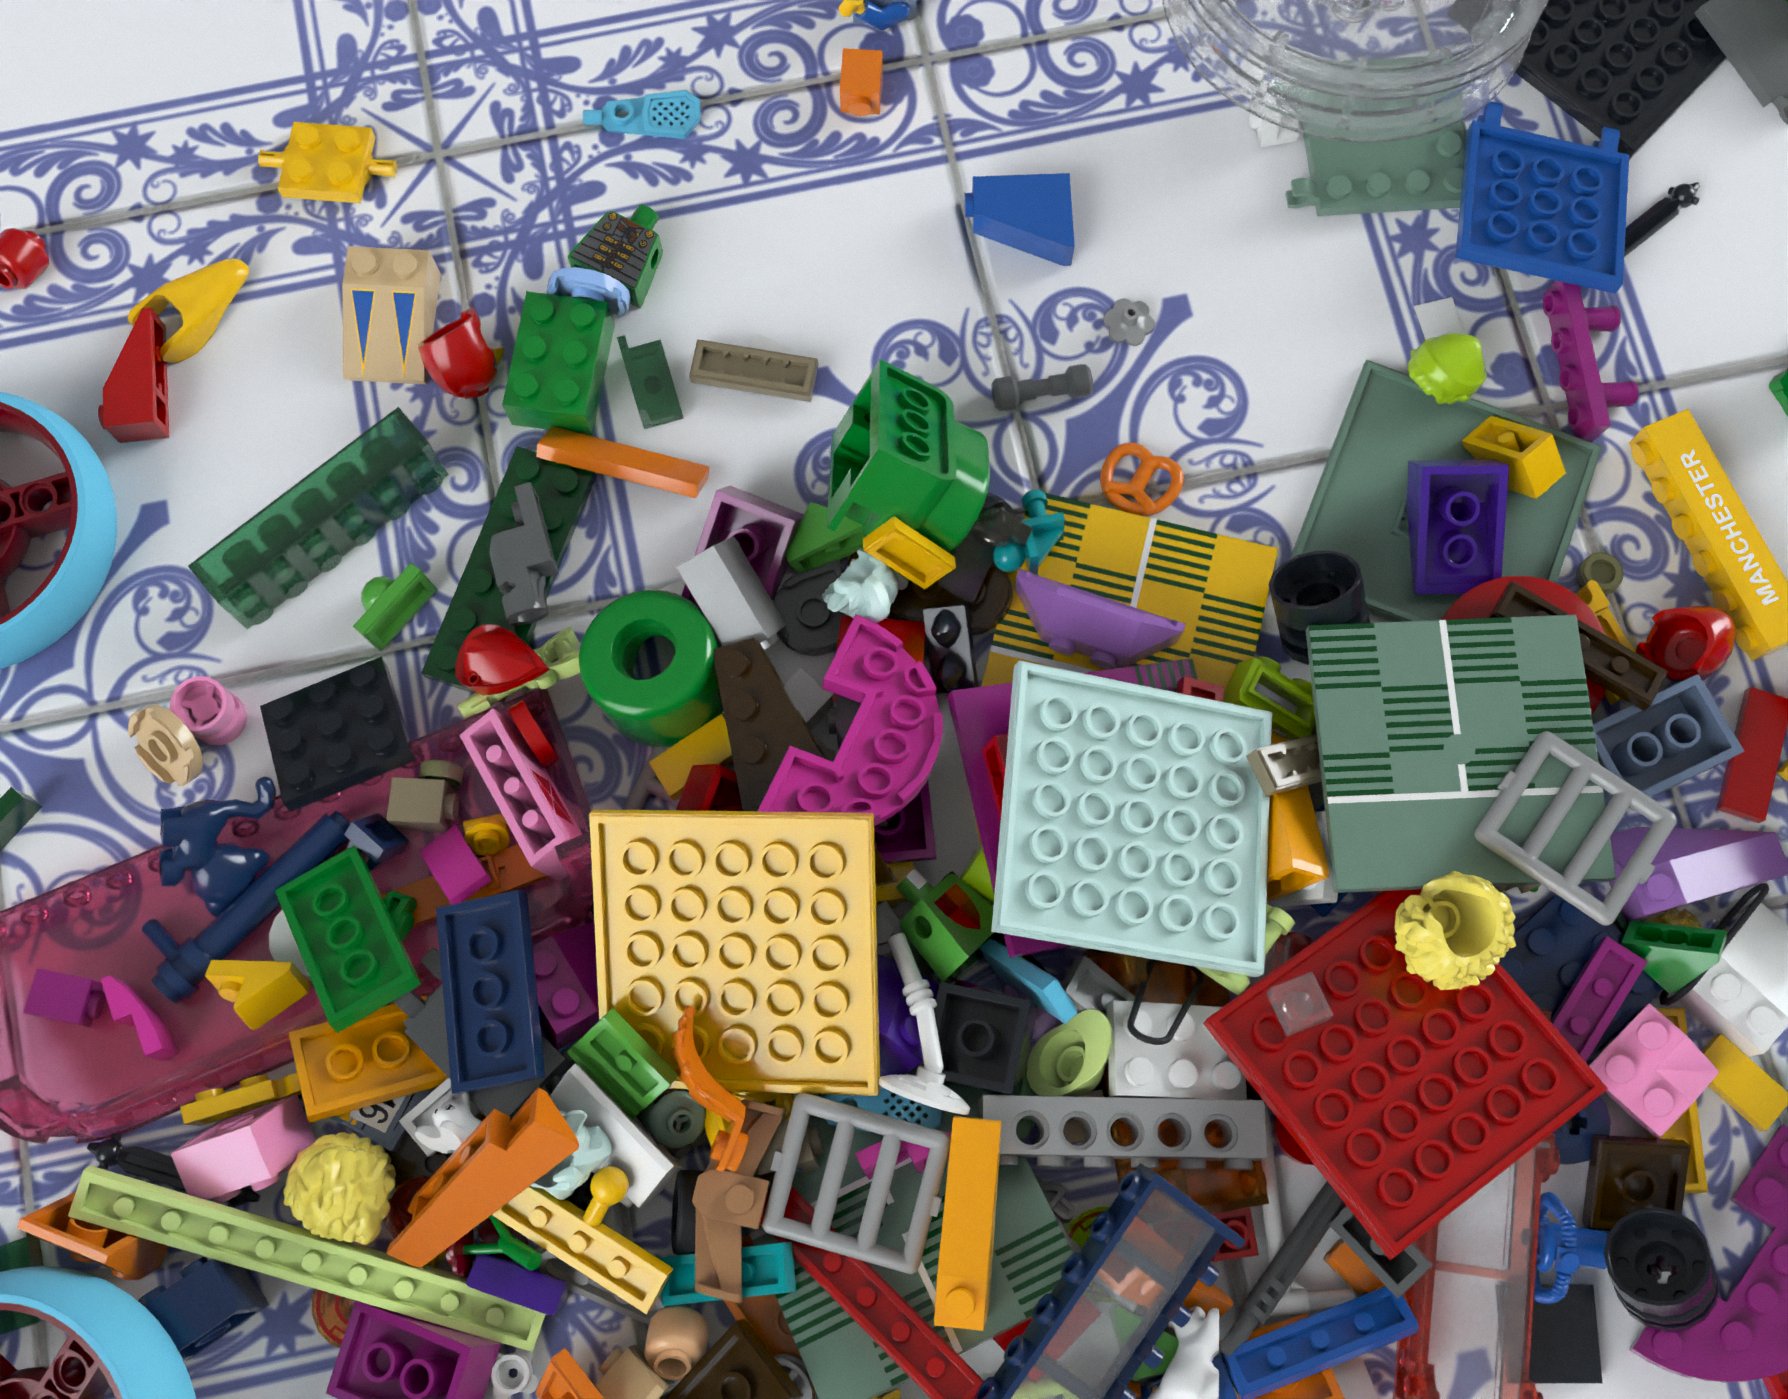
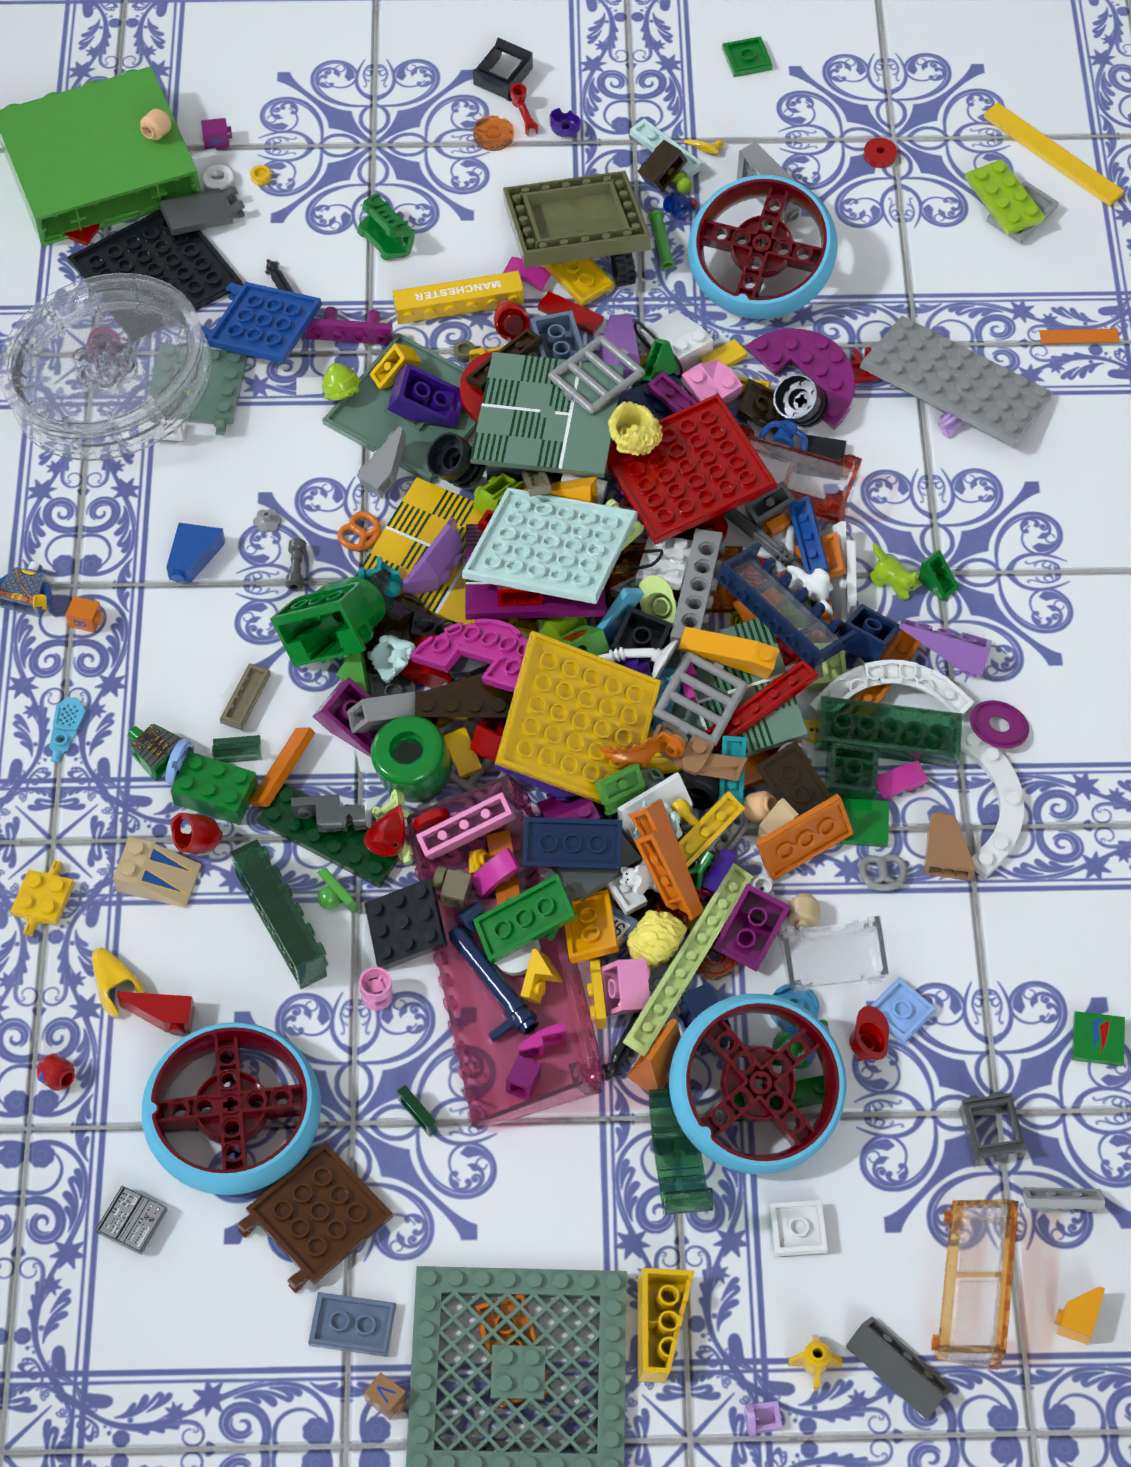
camera: 80 degrees left, 15 degrees down
(165, 745) = (391, 1009): tan tile -> none
(217, 870) = (462, 993): dark blue animal -> none
(908, 553) = (384, 623): yellow tile -> none
(1283, 485) = (383, 467): none -> light grey slope
(1299, 1004) = (655, 498): clear plate -> none

